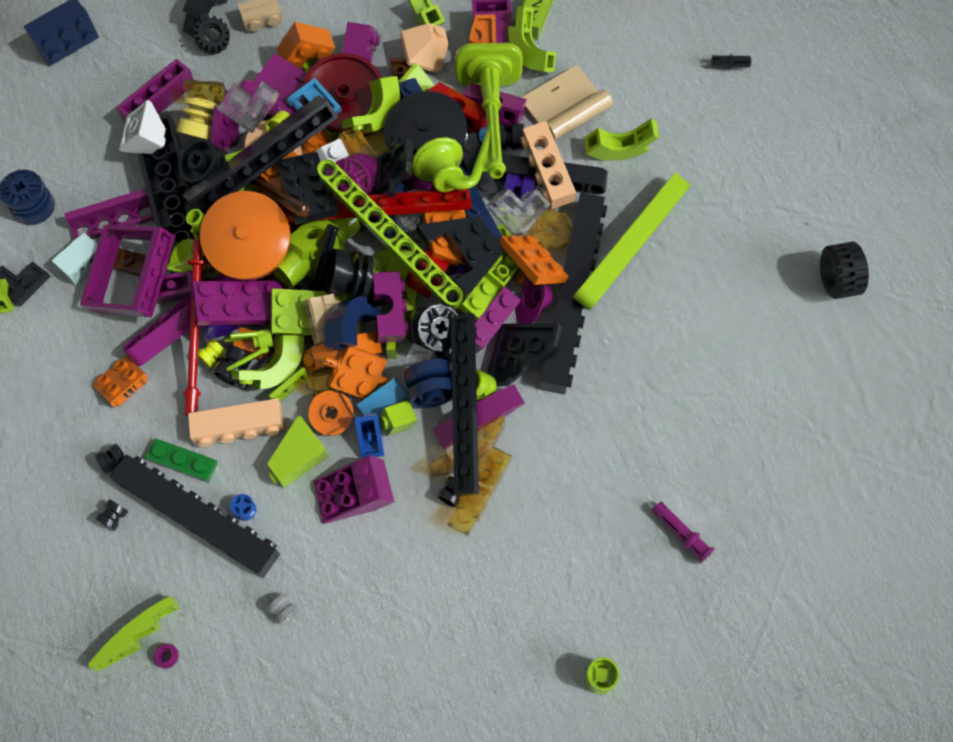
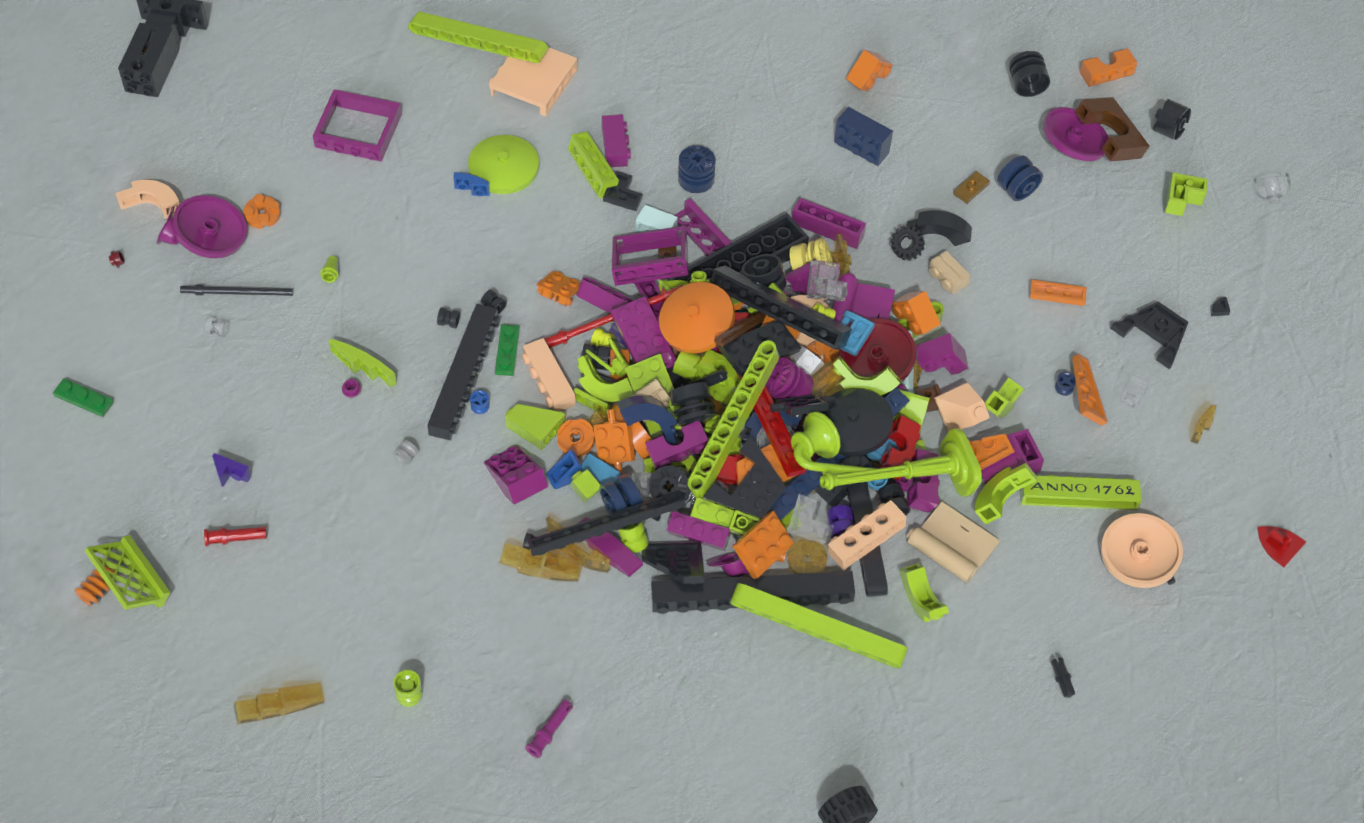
camera: 70 degrees right, 10 degrees down
(143, 131) = (778, 222): white slope -> none

